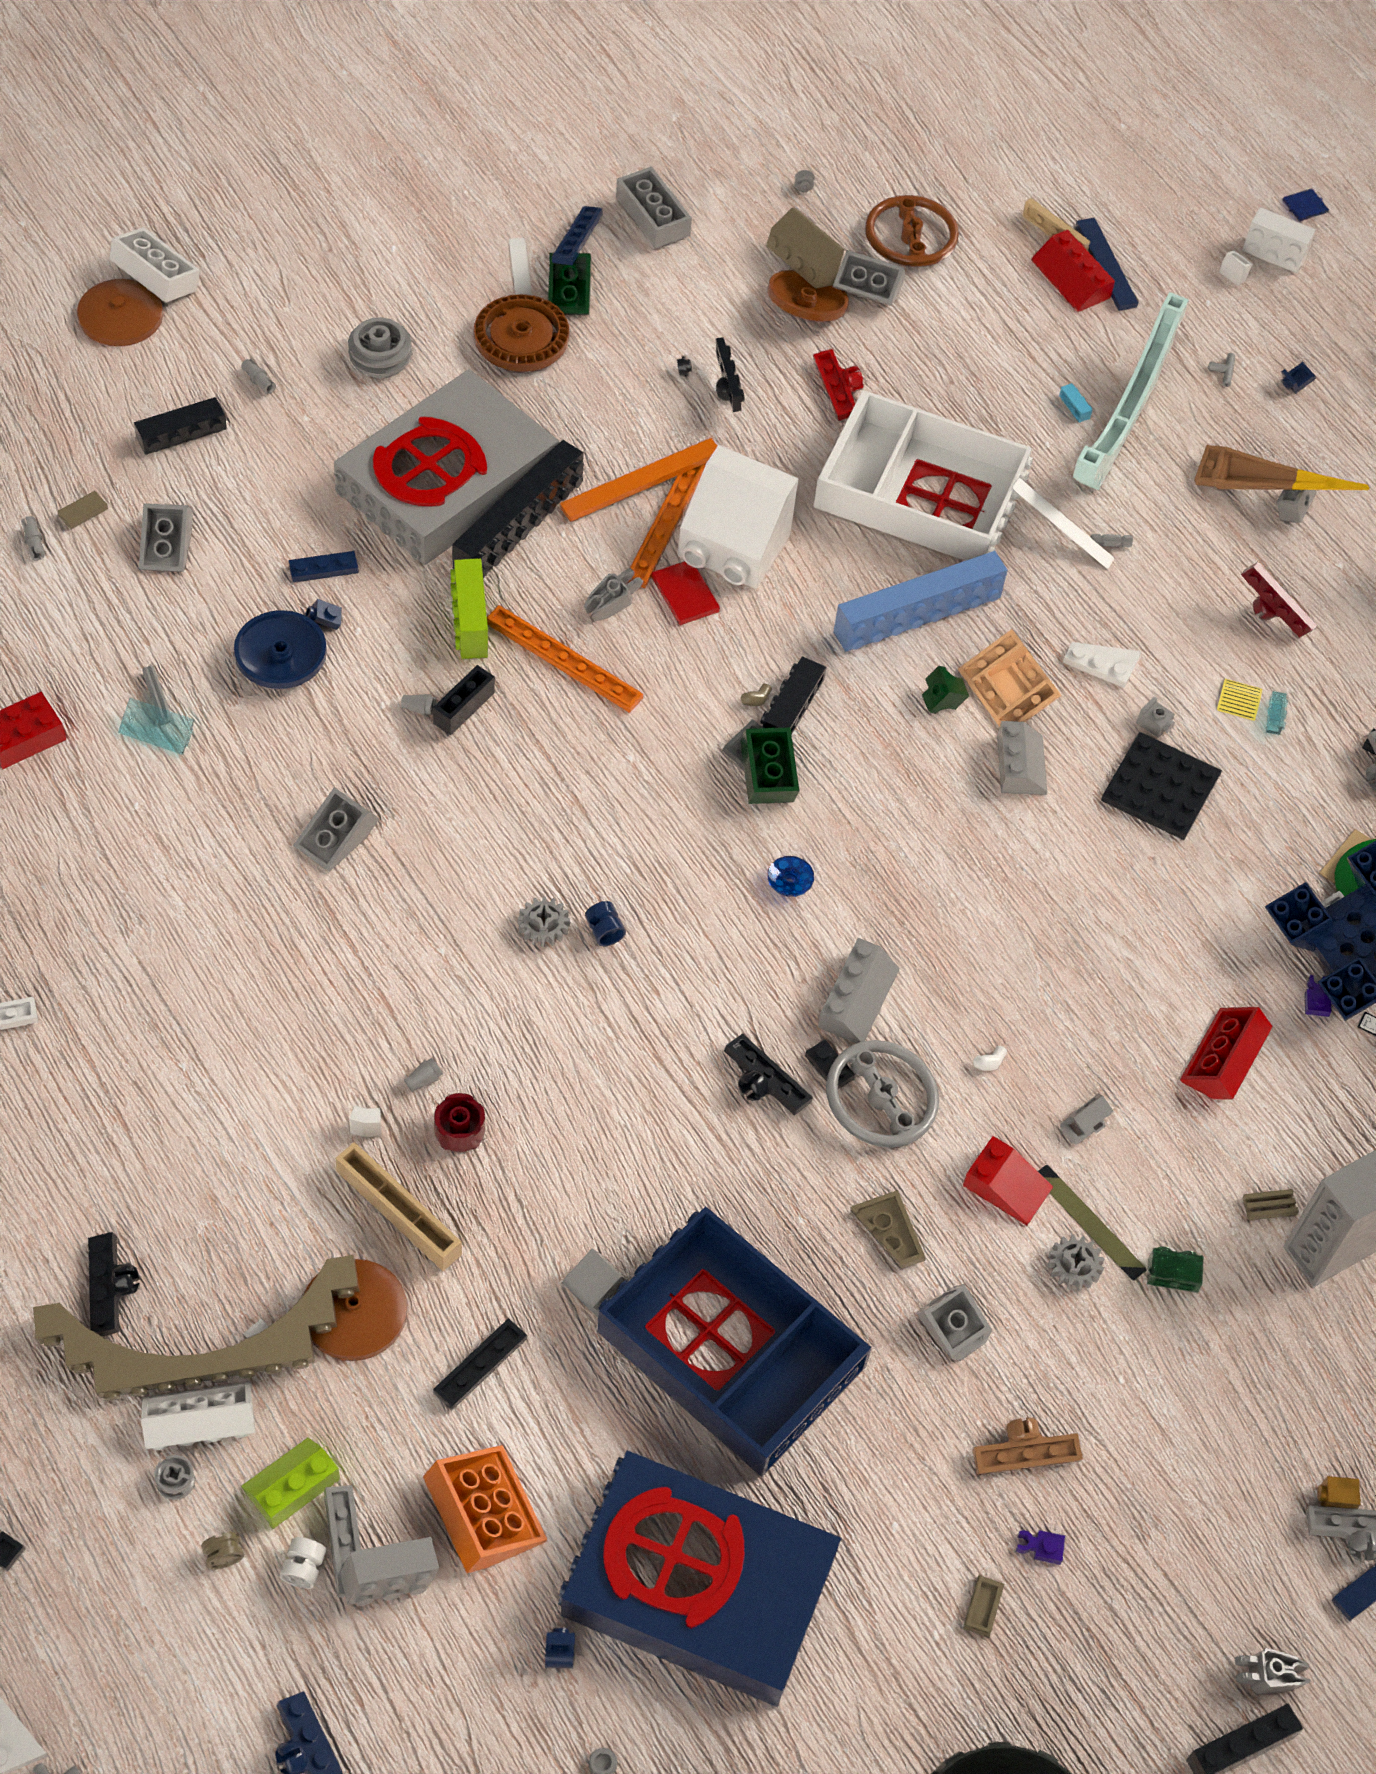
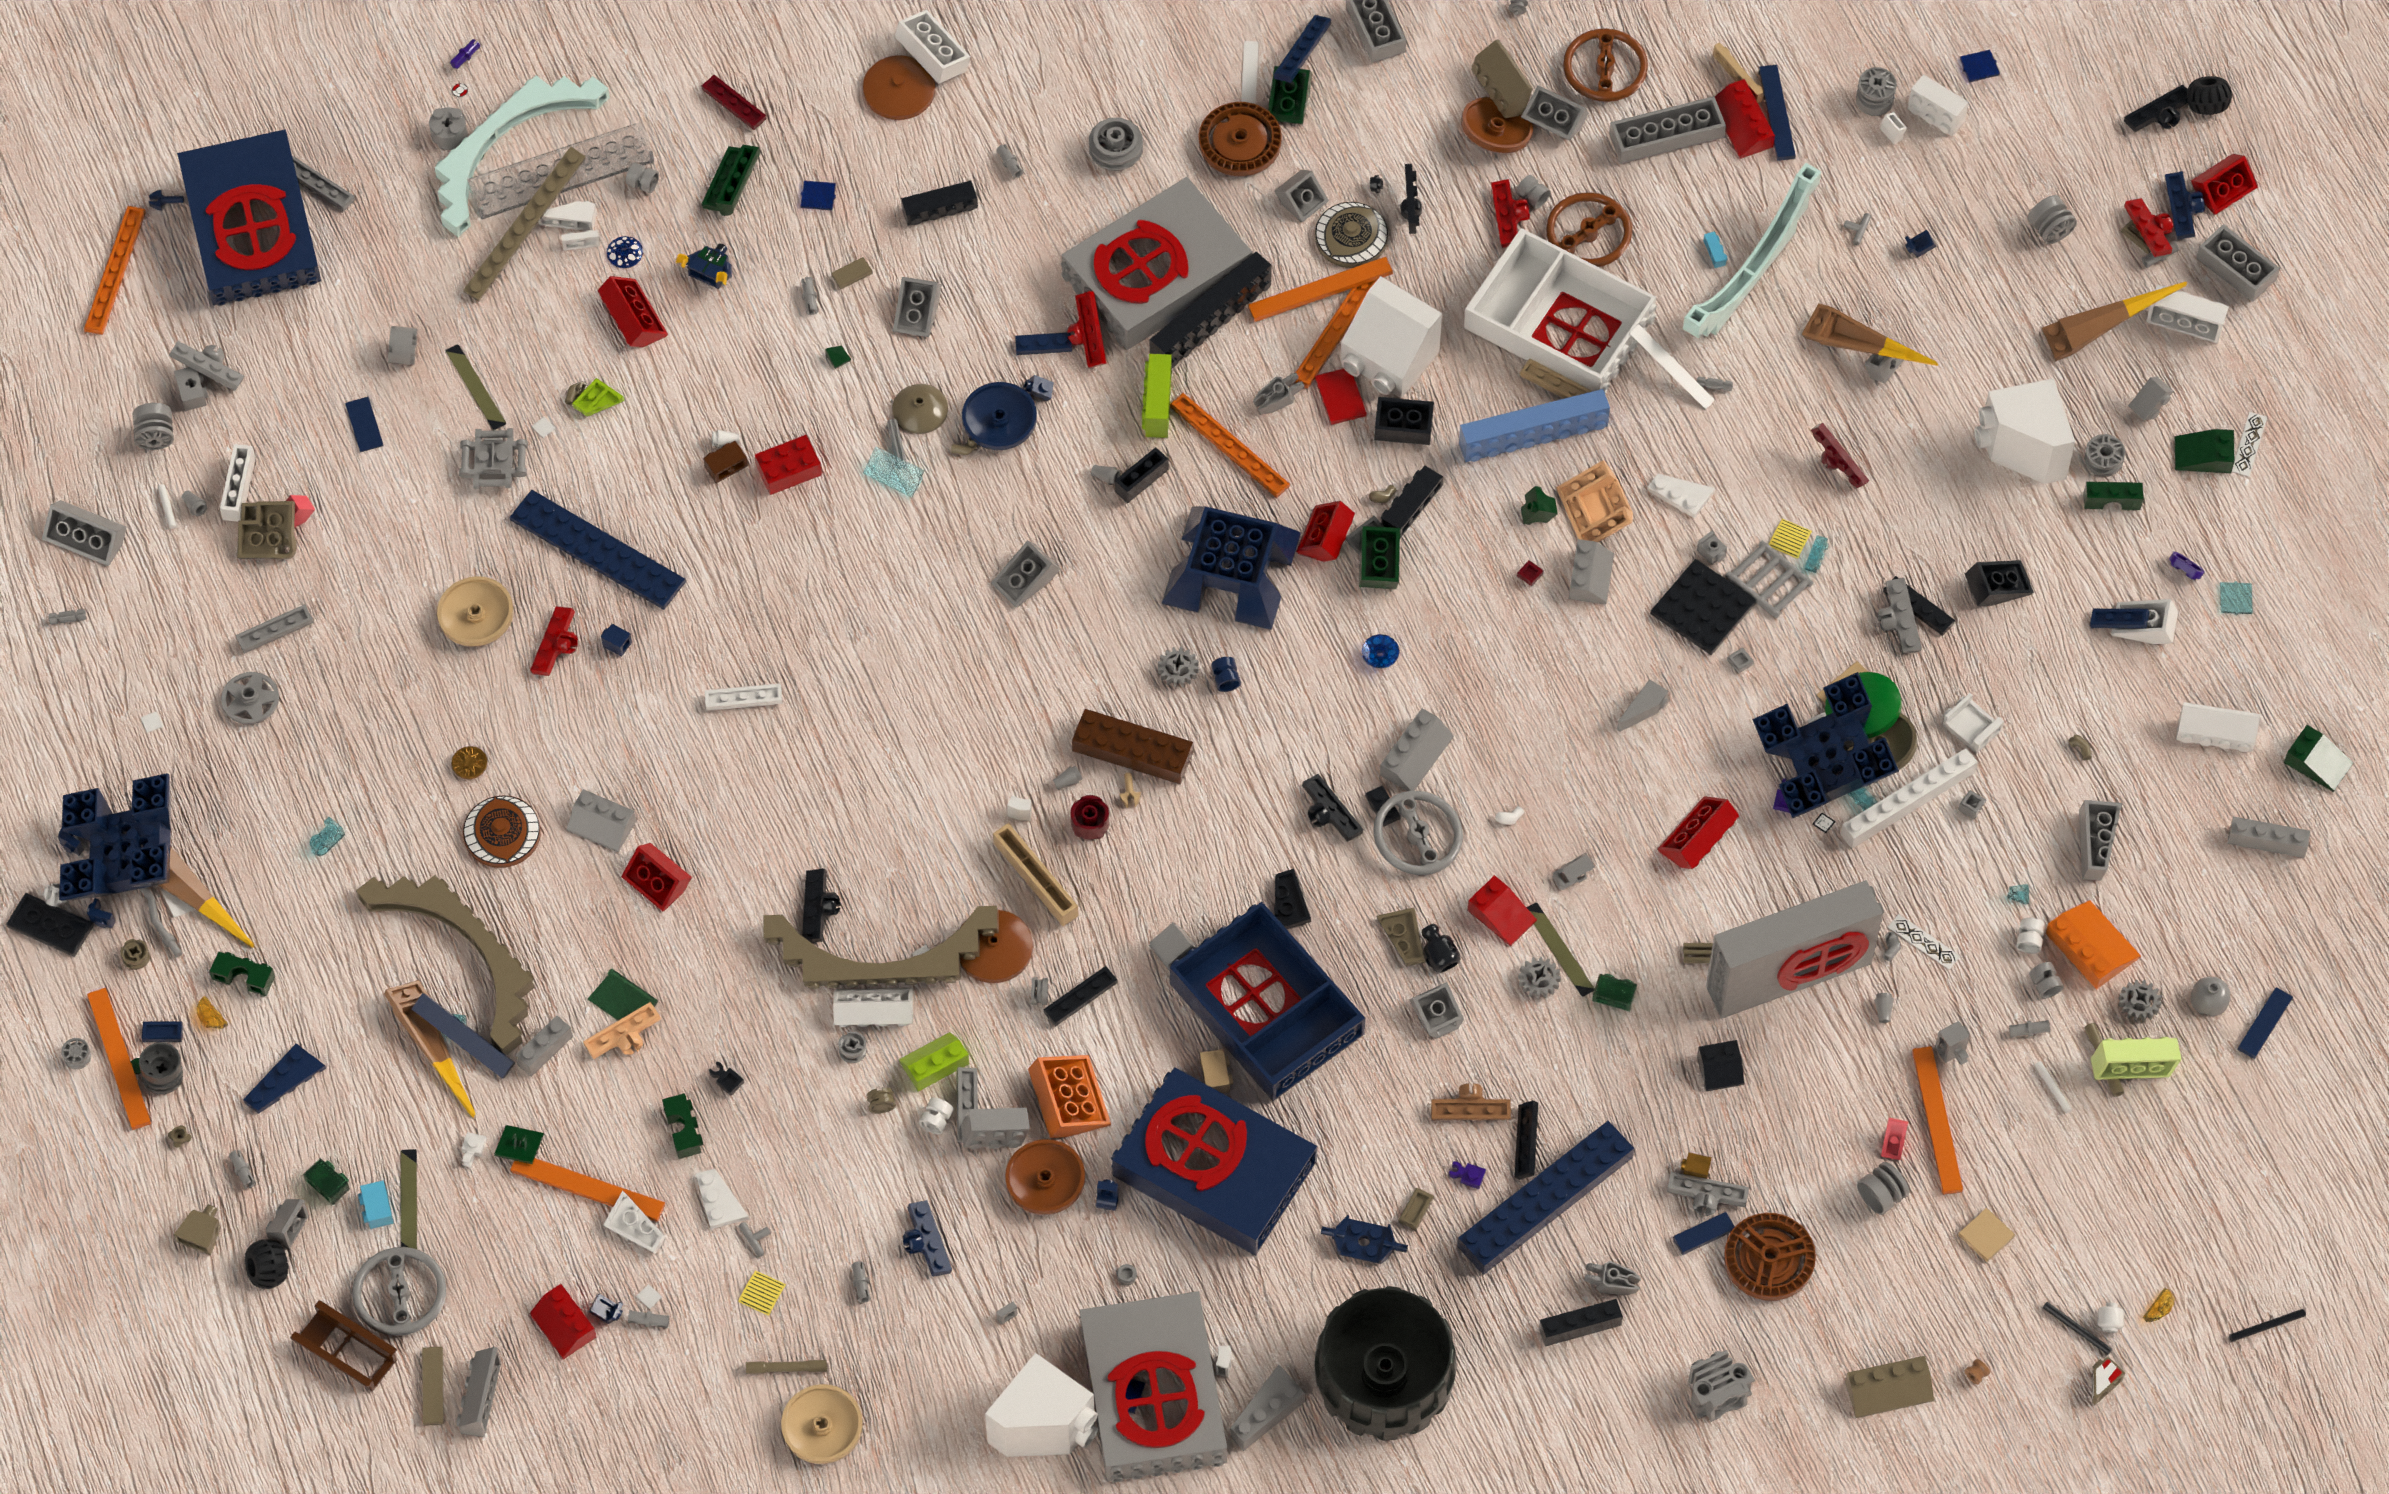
camera: 15 degrees right, 5 degrees up
(34, 431) = (818, 195): none -> clear blue piece
(73, 602) = (837, 356): none -> dark green slope
(182, 660) = (920, 417): none -> dark tan dish
(243, 692) = (964, 449): none -> dark tan arm
(376, 544) = (1088, 330): none -> red plate
(428, 1364) = (1042, 991): none -> light grey wheel
(463, 1609) = (1045, 1176): none -> dark orange dish
(501, 1025) = (1132, 746): none -> reddish brown brick
(505, 1084) = (1129, 791): none -> tan bar
(594, 780) = (1213, 539): none -> dark blue slope
(602, 383) = (1302, 195): none -> light grey slope
(665, 420) = (1351, 234): none -> dish
(678, 1446) = (1214, 1070): none -> tan brick
(697, 743) = (1326, 531): none -> red slope
(735, 1199) = (1289, 900): none -> black wing
(767, 610) = (1404, 420): none -> black brick
(866, 360) = (1535, 193): none -> light grey wheel
(924, 552) = (1551, 380): none -> tan plate
(934, 388) = (1590, 226): none -> dark orange piece
(943, 1242) = (1440, 950): none -> black piece
(945, 1656) = (1350, 1231): none -> dark blue plate
(950, 767) = (1530, 573): none -> dark red plate
(995, 286) = (1667, 129): none -> light grey brick
(1109, 1487) = (1526, 1140): none -> black plate
(1125, 905) = (1645, 705): none -> light grey slope
(1153, 1568) = (1545, 1197): none -> dark blue brick
(1209, 233) = (1876, 91): none -> light grey wheel
(1220, 842) = (1740, 660): none -> light grey tile
(1232, 723) = (1777, 558): none -> light grey bar
(1333, 1350) = (1720, 1065): none -> black slope

